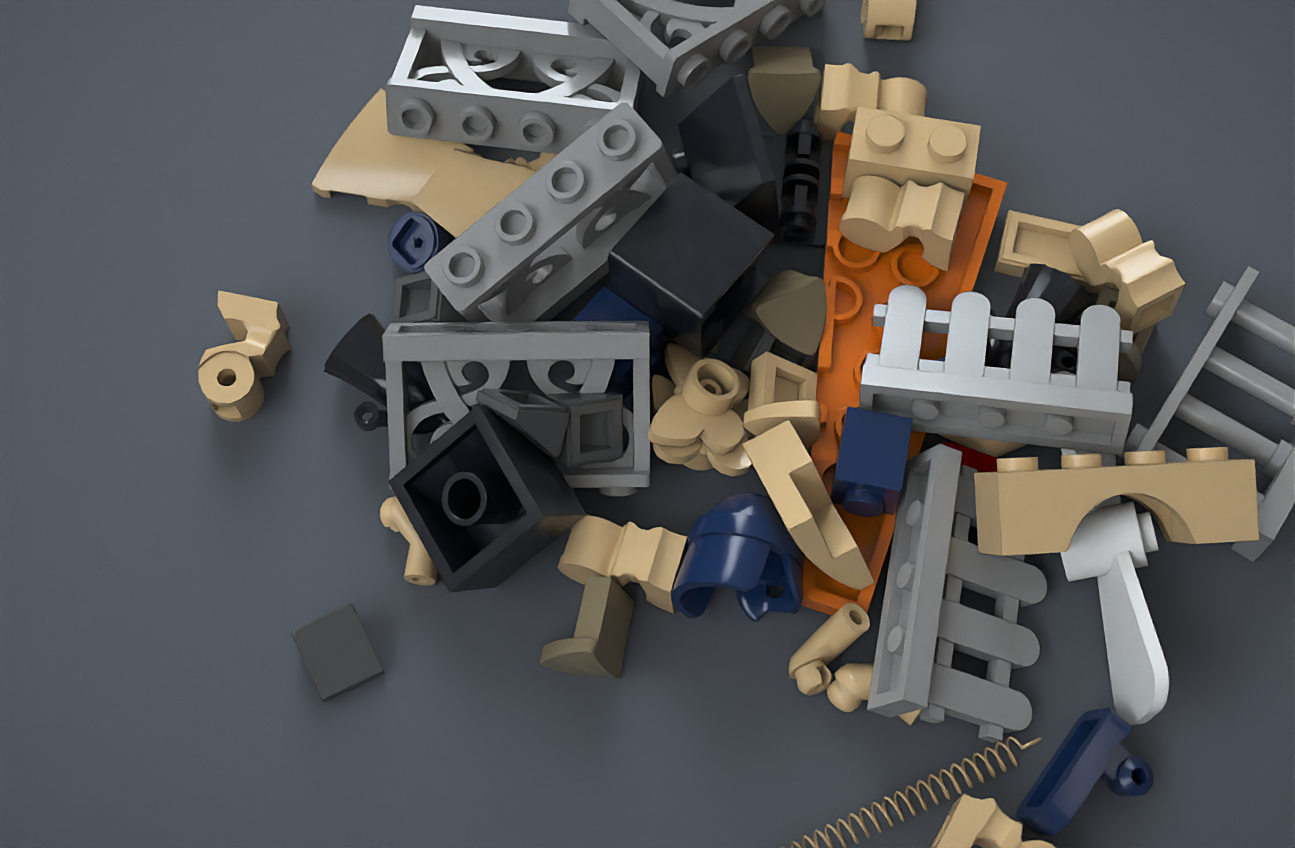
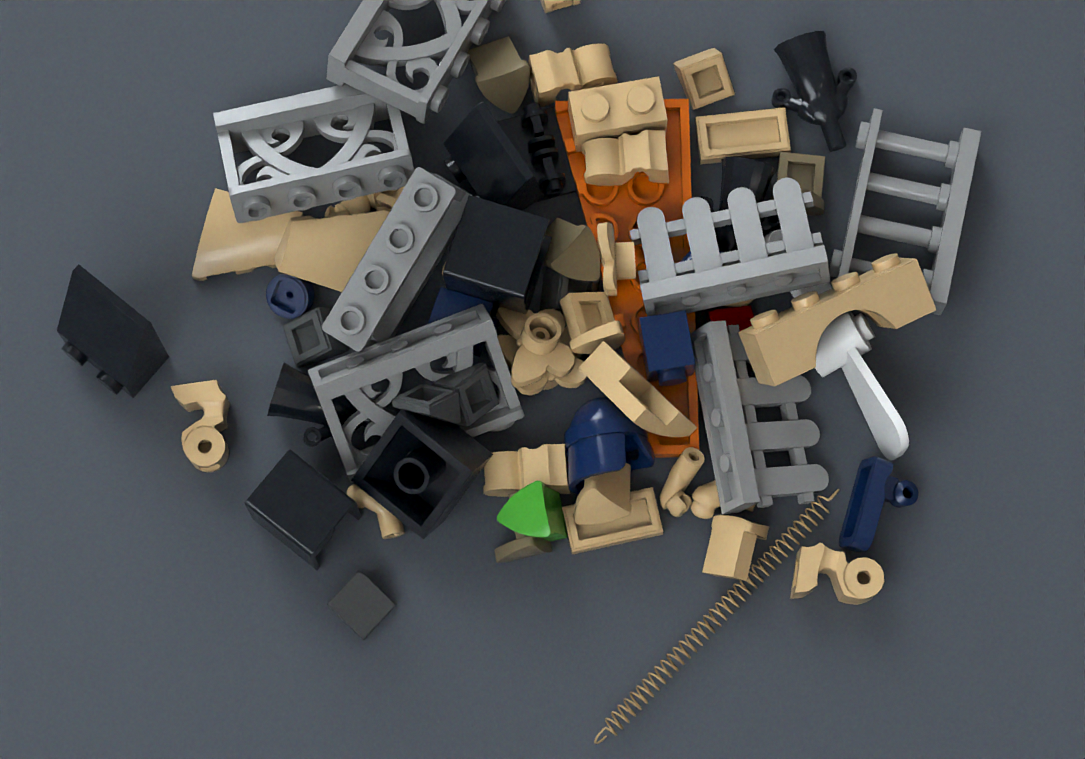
camera: 20 degrees left, 10 degrees up
(170, 201) = (108, 335): none -> black slope
(309, 490) = (300, 506): none -> black piece
(614, 613) = (535, 513): none -> bright green tile
(715, 625) = (604, 498): none -> tan tile
(715, 667) = (640, 524): none -> tan tile
(845, 326) = (616, 258): none -> tan animal
(866, 760) = (732, 546): none -> tan tile
(1035, 173) = (704, 78): none -> tan slope
(1114, 253) = (782, 134): tan leg -> none
(1175, 211) = (813, 79): none -> black piece

